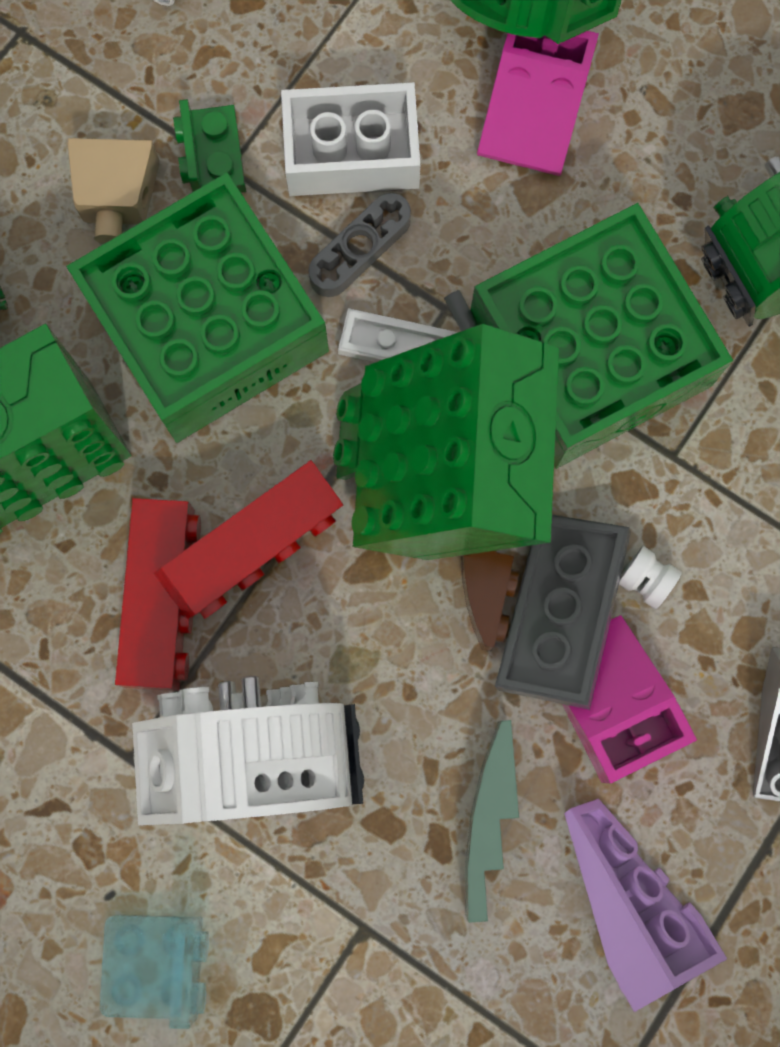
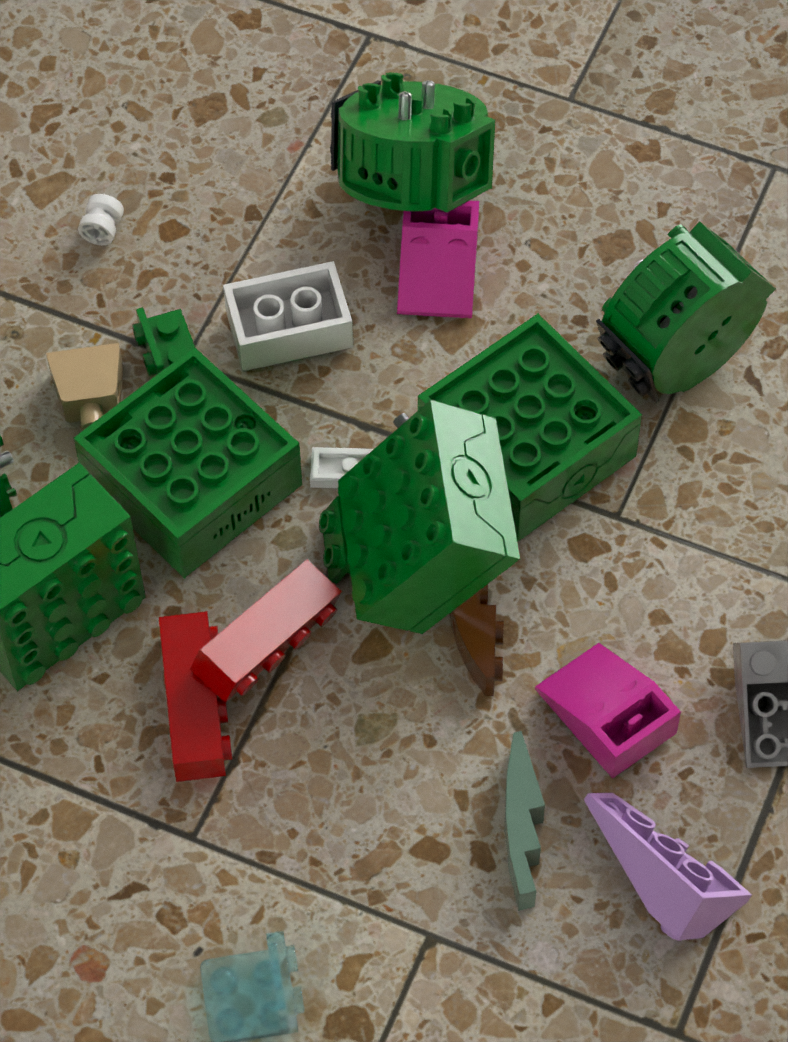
camera: 10 degrees left, 20 degrees down
(245, 755) = (303, 785): white piece -> none
(373, 214) = (314, 382): dark grey beam -> none
(564, 612) = (547, 642): dark grey tile -> none
(649, 577) = (615, 607): white wheel -> none

